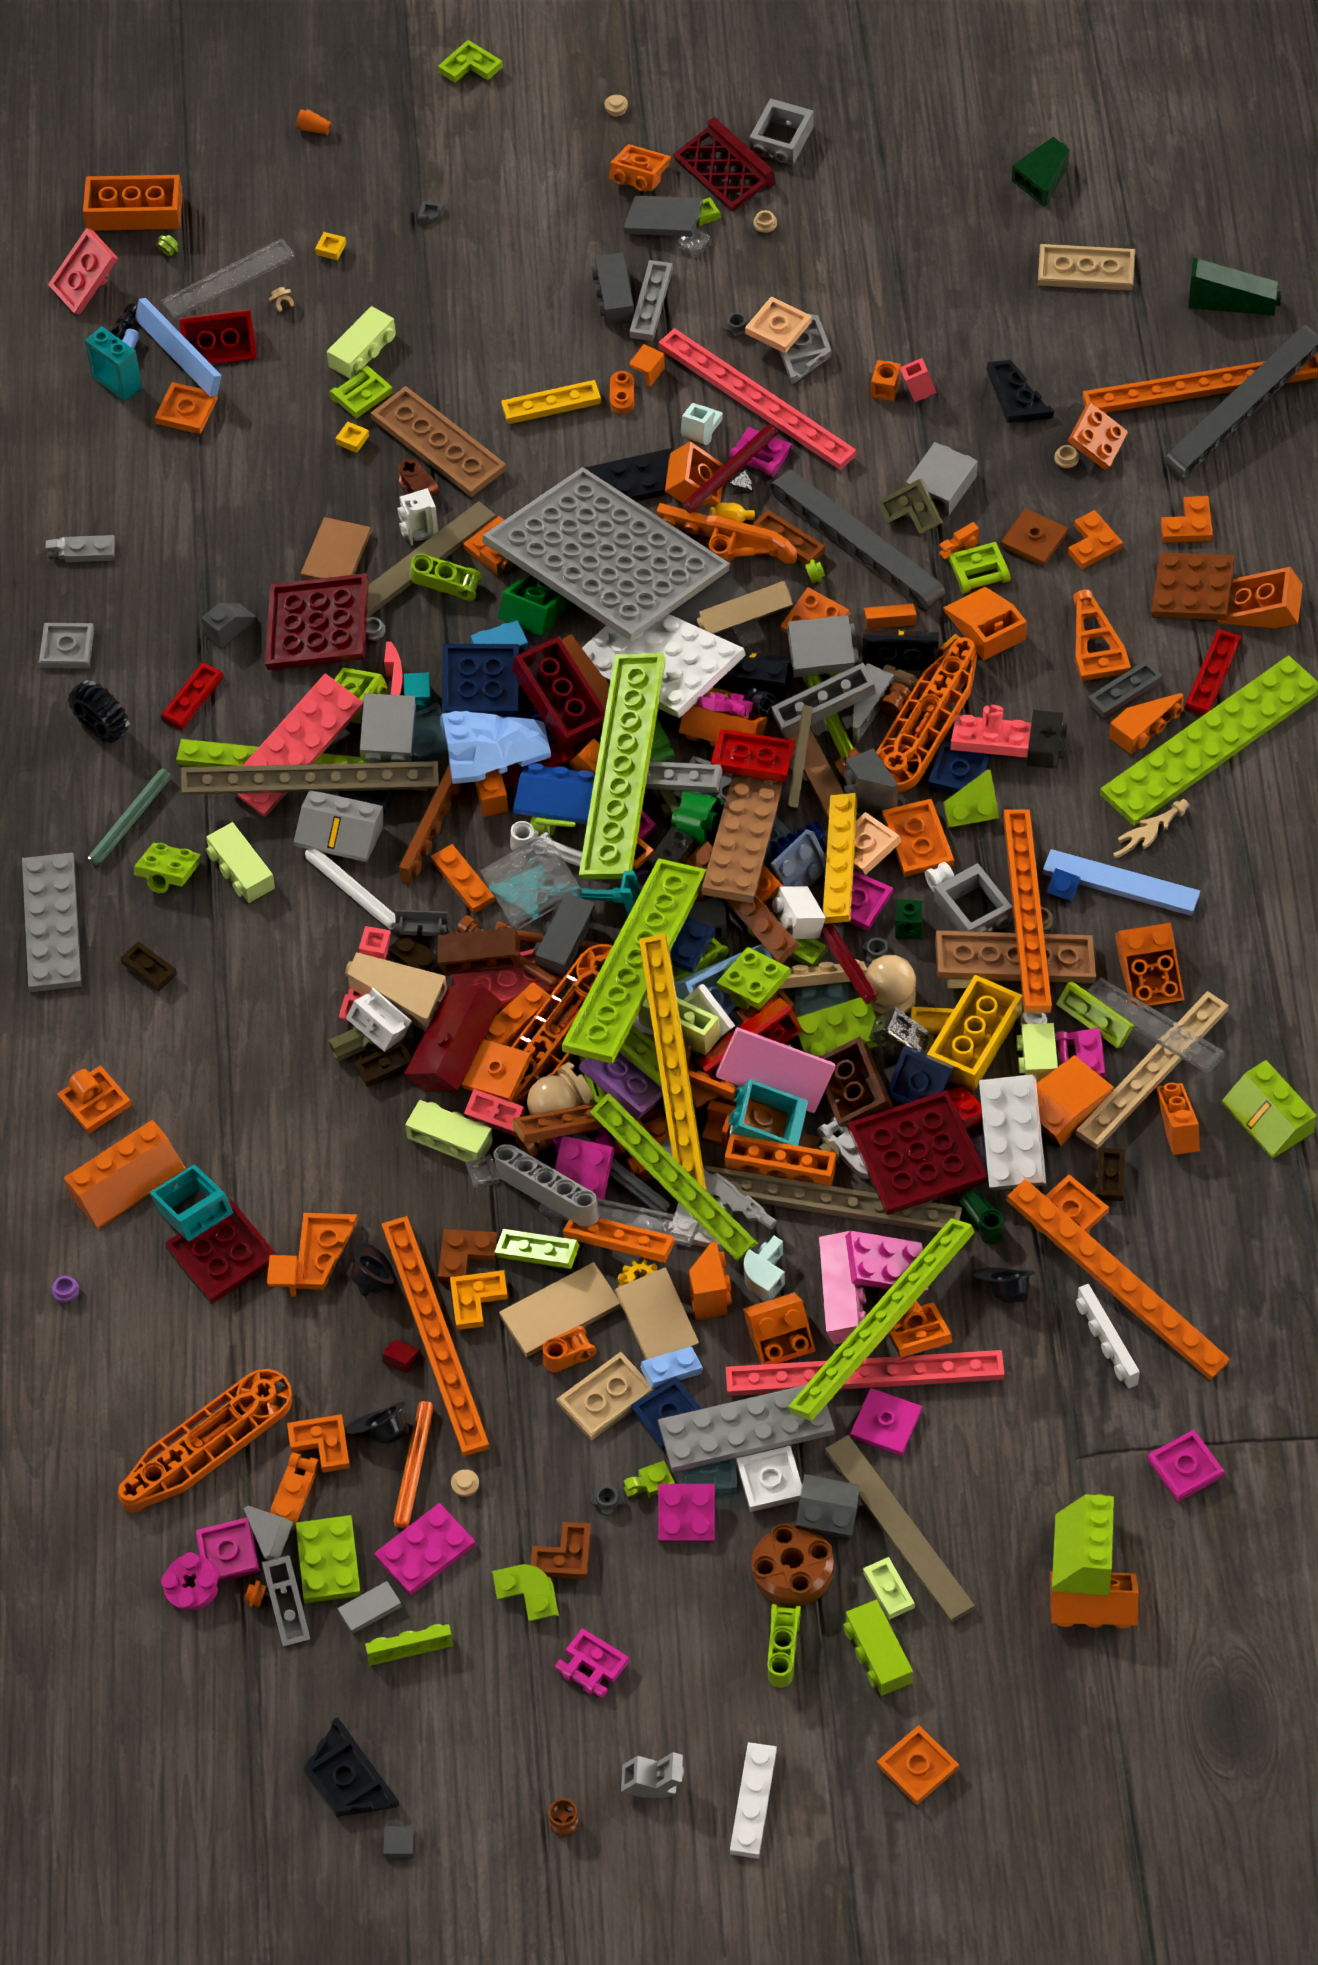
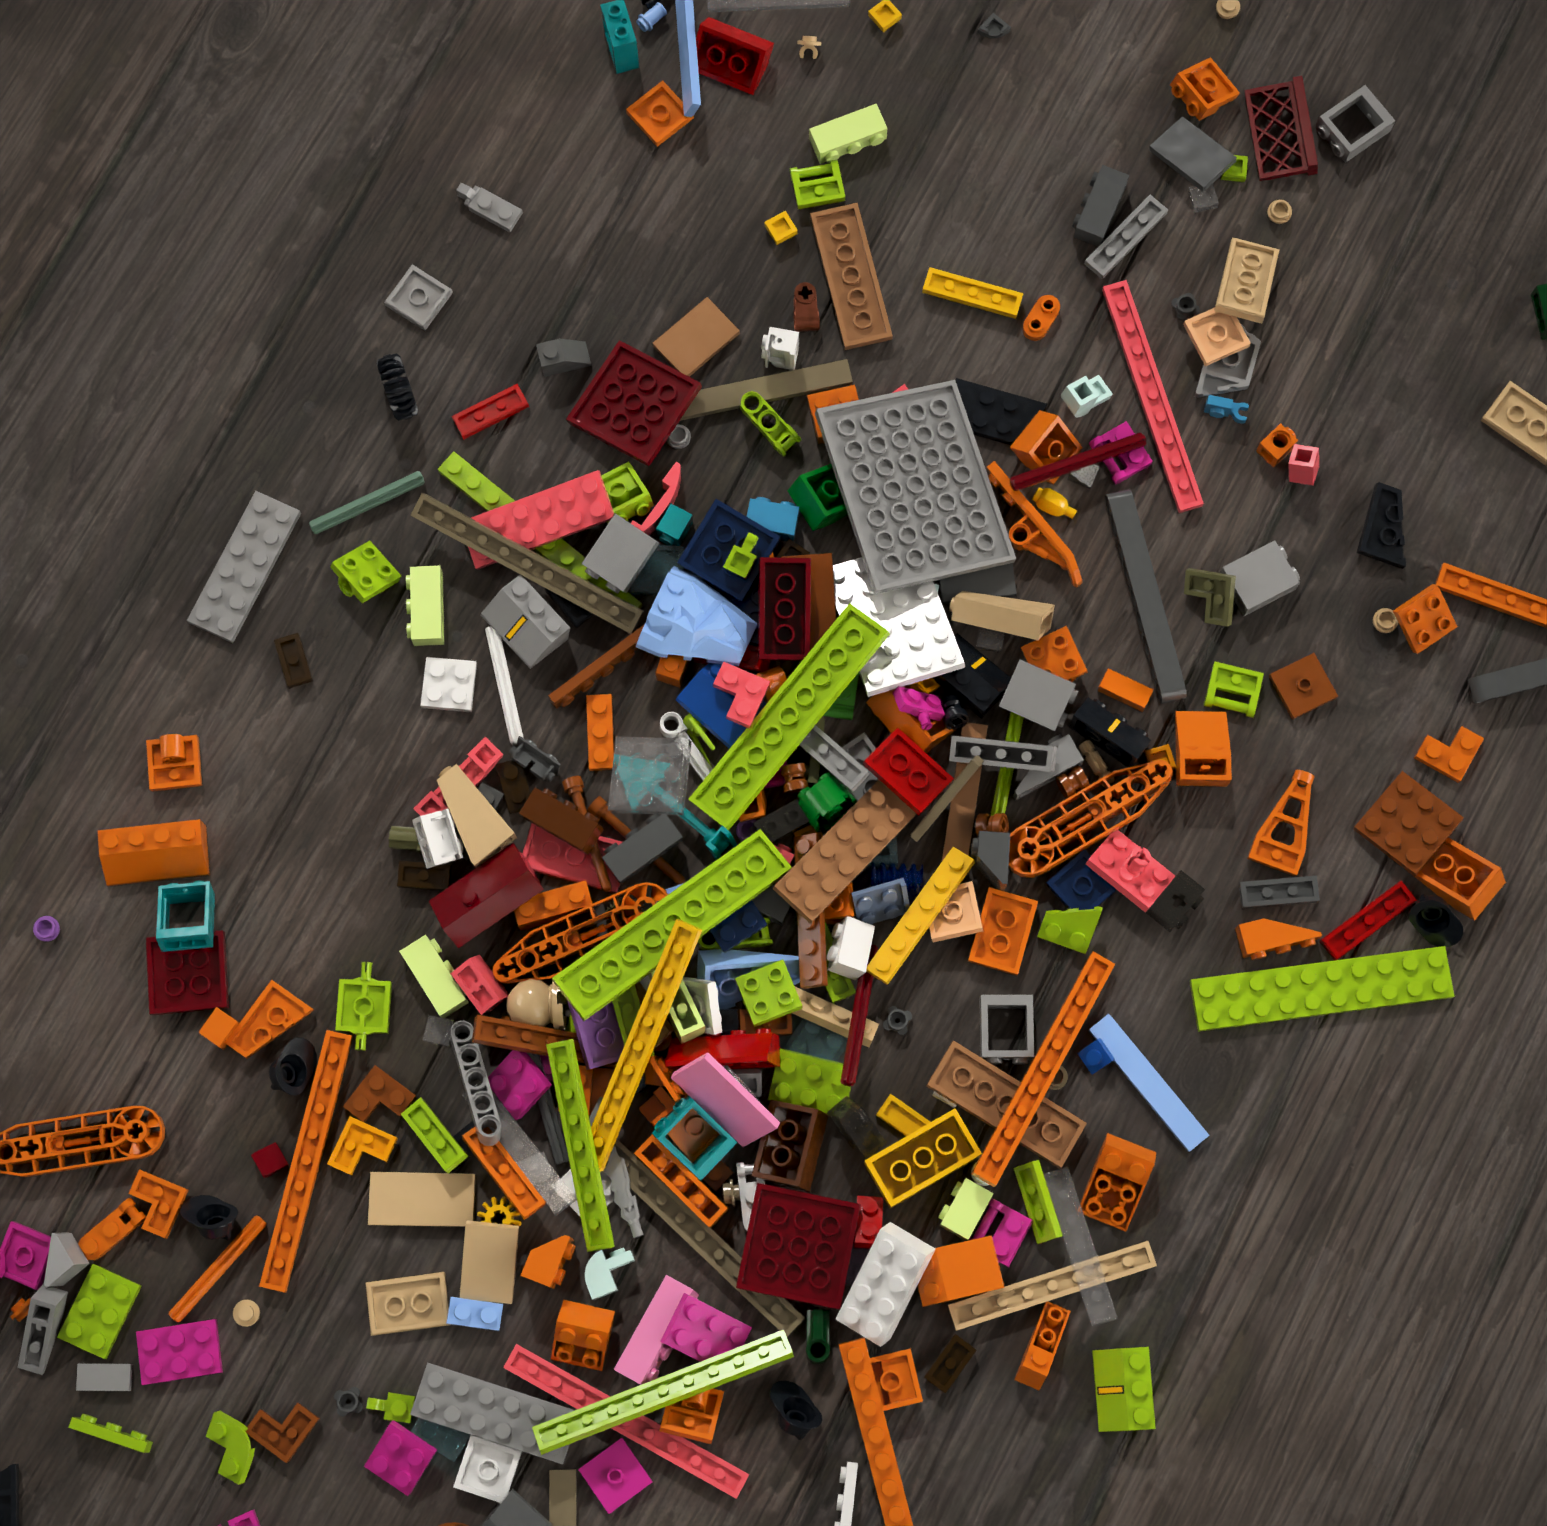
camera: 30 degrees right, 20 degrees up
(301, 913) = (448, 684): none -> white plate
(401, 1189) = (363, 1006): none -> lime plate
(497, 673) = (741, 559): none -> lime plate
(497, 1070) = (502, 949): orange plate -> none
(571, 763) = (746, 688): none -> coral plate
(571, 1347) = (404, 1243): orange piece -> none
(649, 362) = (1079, 304): orange panel -> none
(658, 813) = (794, 777): none -> dark orange wheel
(663, 1402) = (446, 1348): dark blue plate -> none
(774, 276) = (1246, 280): none -> tan tile
(806, 546) = (1088, 558): dark orange plate -> none
(815, 571) = (1088, 607): lime plate -> none
(821, 375) = (1222, 407): none -> dark azure plate
(867, 900) = (920, 966): dark pink plate -> none
(894, 983) = (881, 1068): tan tile -> none
(909, 919) = (941, 1009): dark green brick -> none
(918, 1076) = (846, 1174): dark blue plate -> none
(938, 875) = (995, 983): white wheel -> none
(962, 540) = (1238, 654): orange plate -> none
(1097, 543) = (1358, 725): orange plate -> none
(1150, 828) = (1206, 1047): tan piece -> none
(1268, 639) = (1436, 921): none -> black piece

